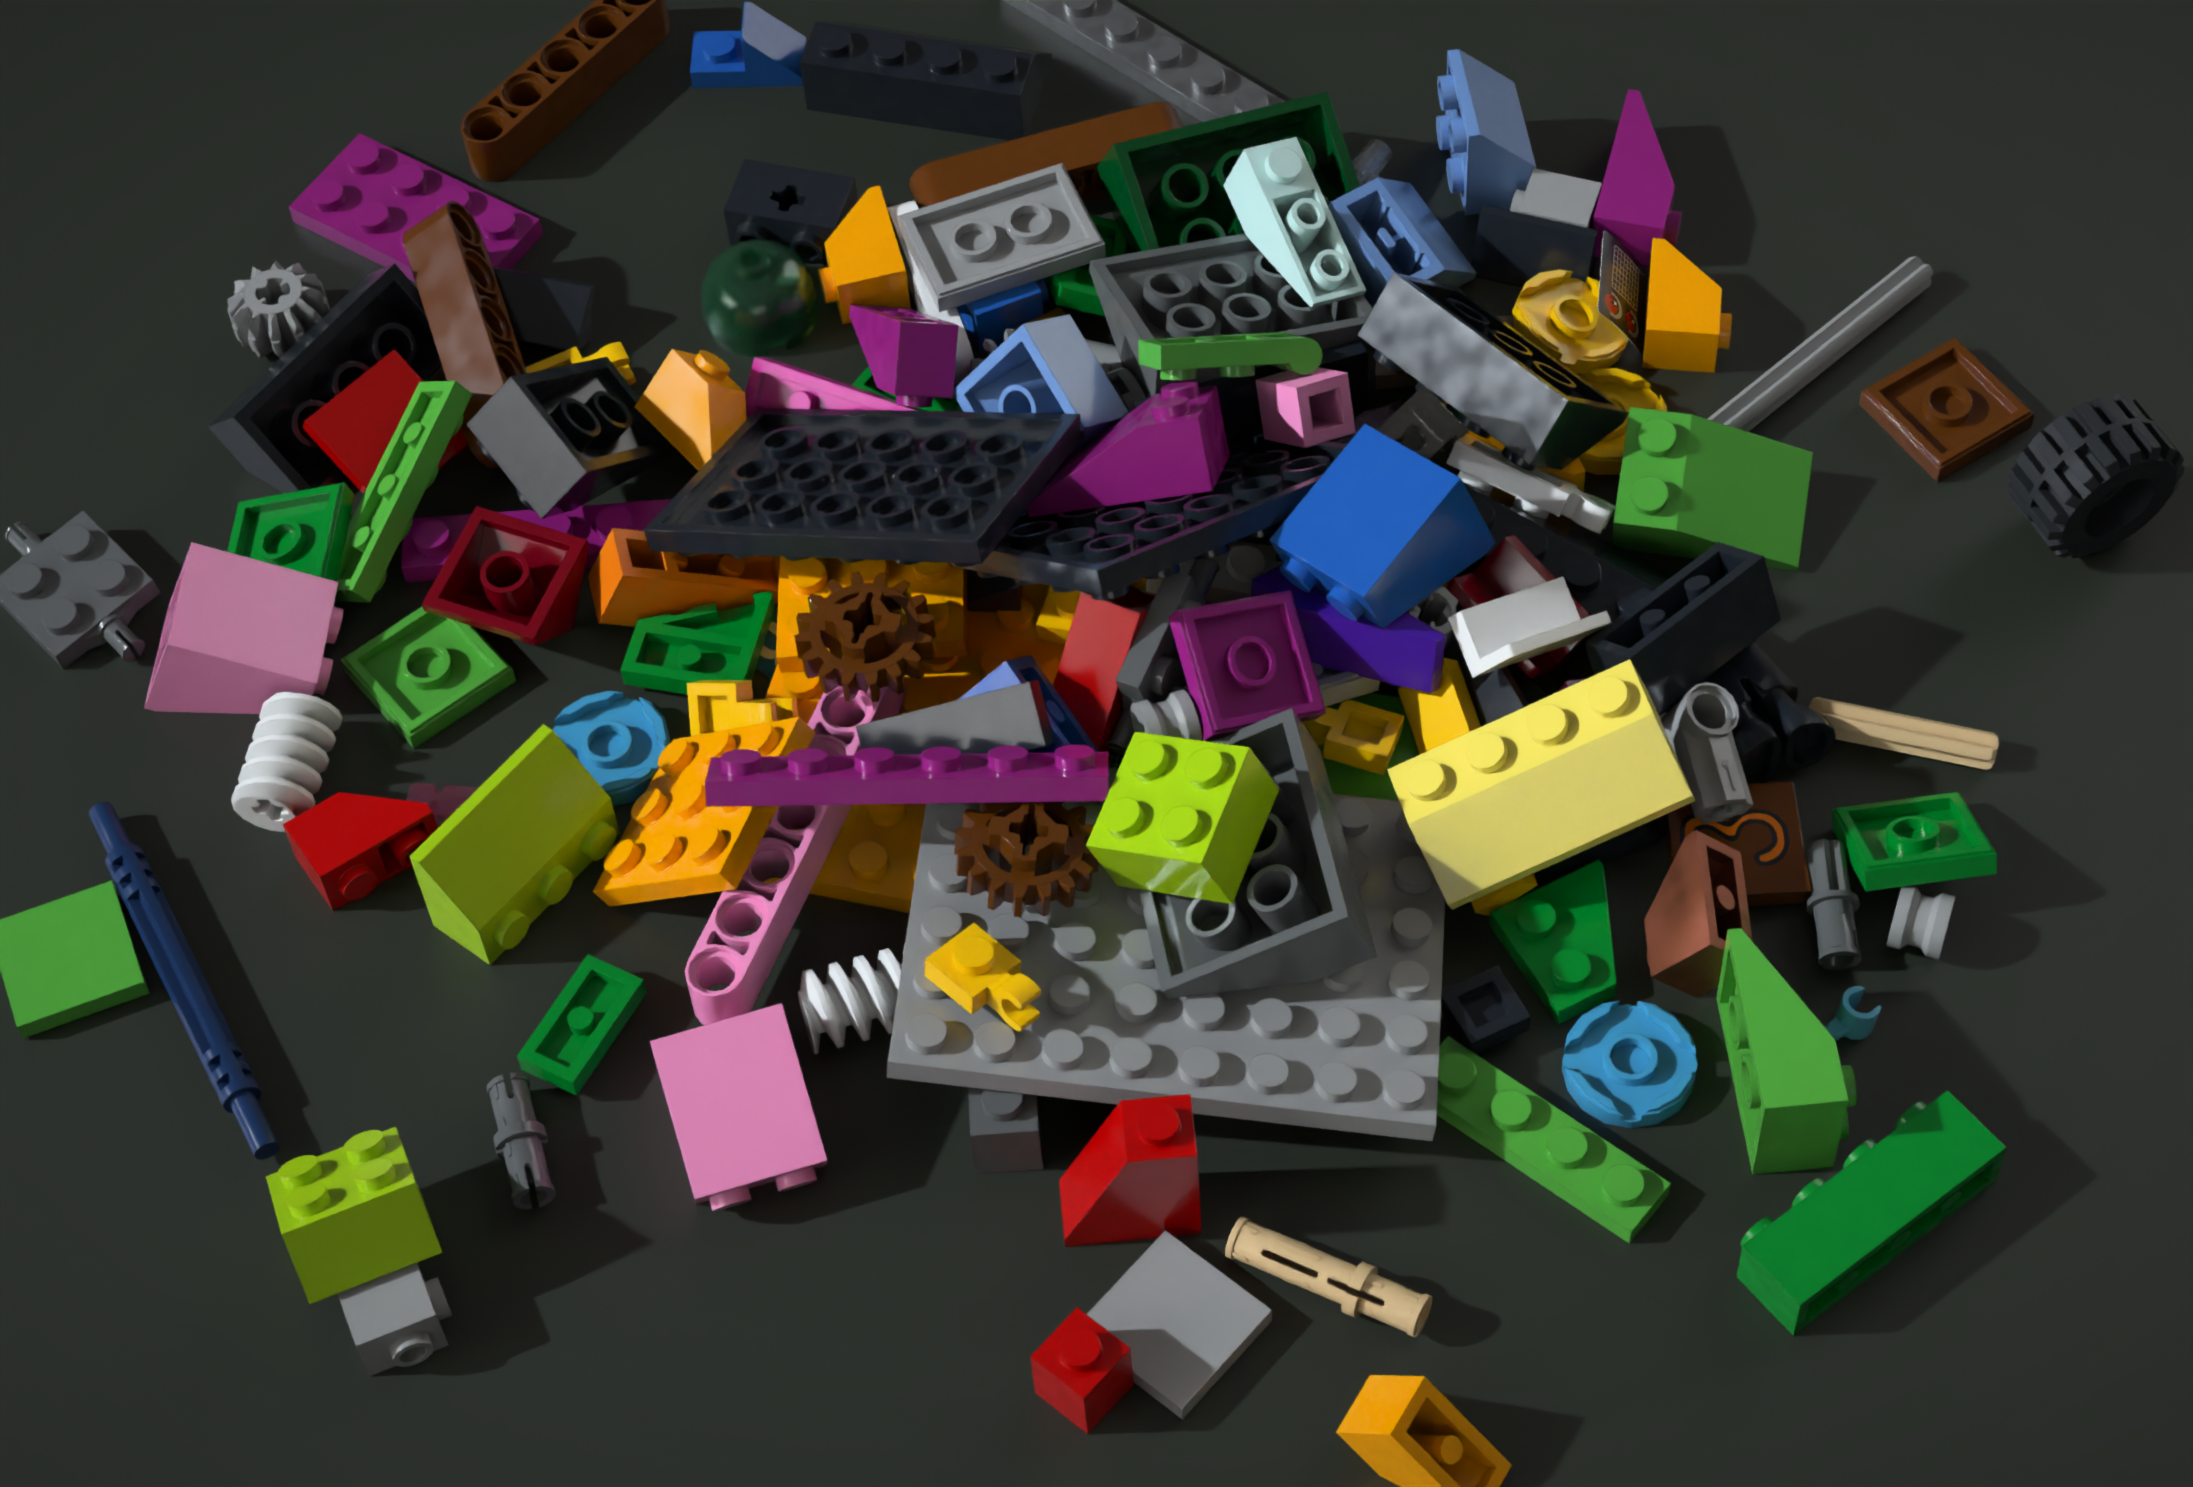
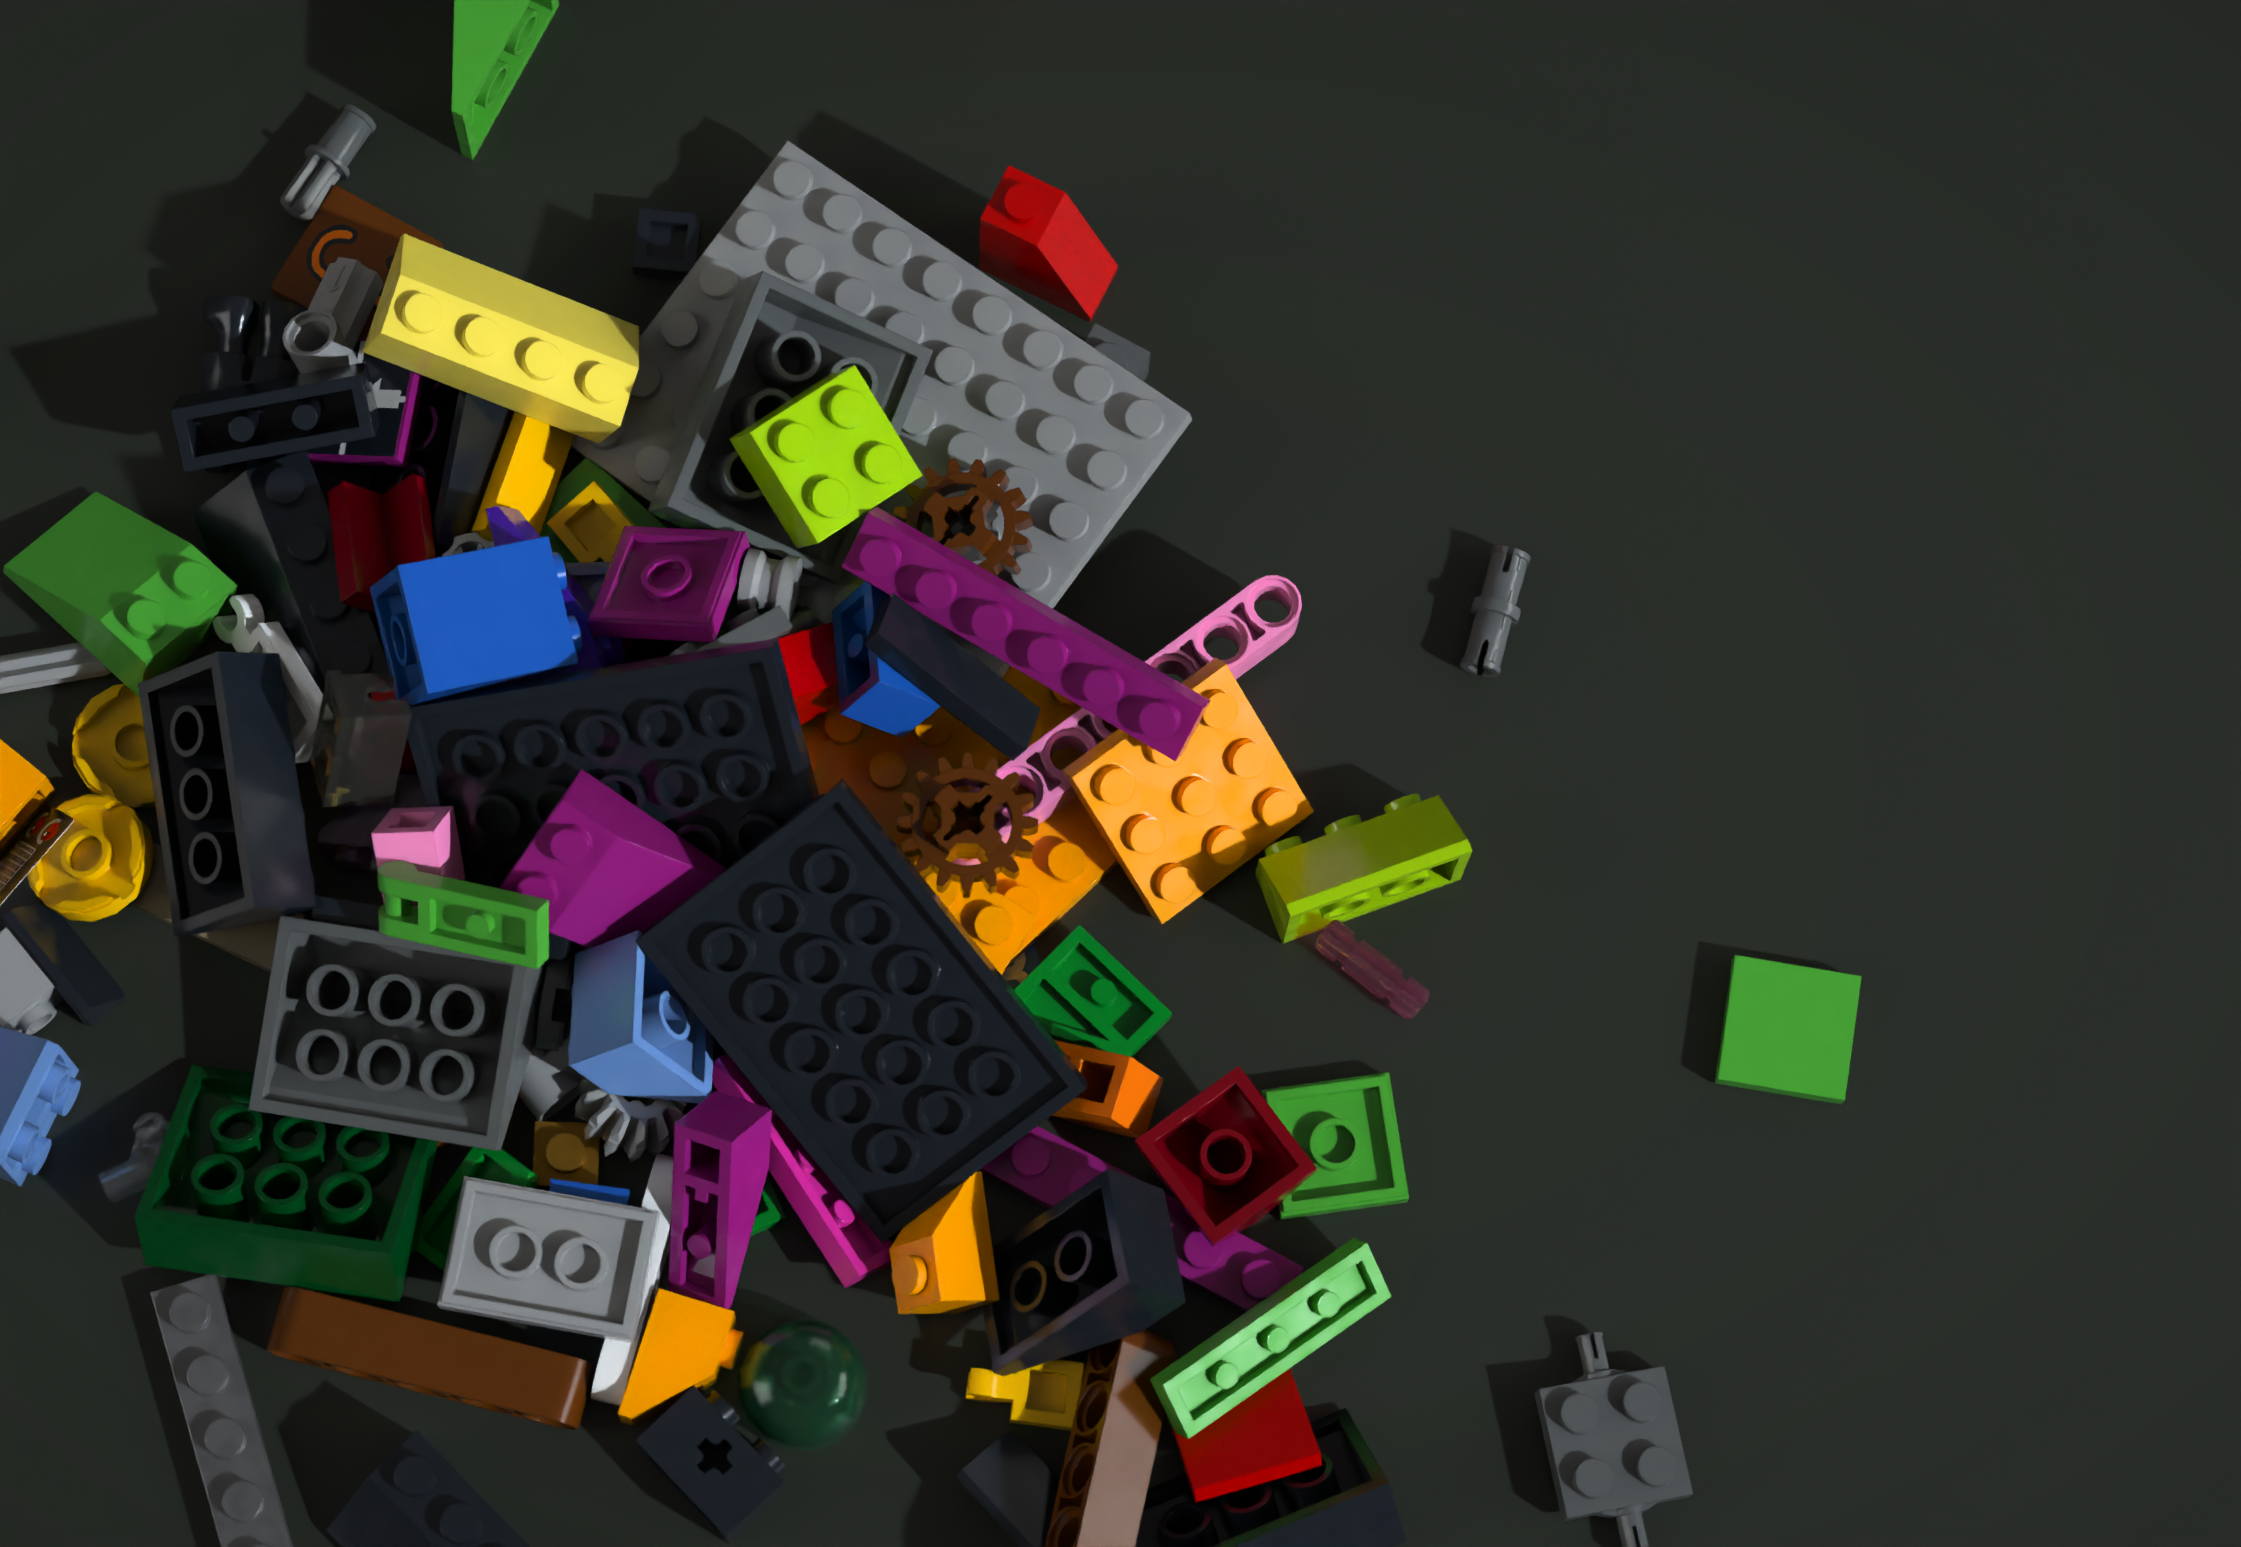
camera: 160 degrees left, 20 degrees up
(184, 981) = (1699, 949): dark blue axle -> none
(242, 635) = (1492, 1261): bright pink slope -> none
(285, 759) = (1507, 1102): white piece -> none
(296, 529) = (1398, 1357): green tile -> none
(352, 1214) = (1670, 588): lime brick -> none
(357, 842) = (1490, 978): red slope -> none
(396, 1318) = (1673, 505): light grey brick -> none
(582, 1024) = (1391, 683): green plate -> none
(615, 741) = (1220, 958): dark azure tile -> none
(730, 705) = (1105, 895): yellow plate -> none
(739, 1107) = (1310, 517): bright pink slope -> none
(850, 1000) = (1156, 556): white piece -> none
(982, 972) = (1073, 438): yellow plate -> none
(1082, 1370) = (1177, 135): red brick -> none
(1180, 1322) = (1082, 142): light grey tile -> none
(1292, 222) = (284, 1070): light aqua slope -> none
(1396, 232) = (190, 1025): medium blue slope -> none
(1400, 1305) = (929, 86): tan pin -> none
(1521, 626) = (409, 479): white panel -> none
(1546, 1143) = (696, 112): bright green plate -> none
(1562, 941) = (567, 253): green wing -> none
(1629, 1064) = (584, 141): dark azure tile -> none
(1692, 914) = (451, 189): copper slope -> none
(1850, 1022) = (401, 69): medium azure hand -> none
(1909, 734) = (144, 280): tan axle -> none
(1913, 841) = (225, 163): green tile -> none
(1920, 921) = (273, 101): light grey wheel -> none

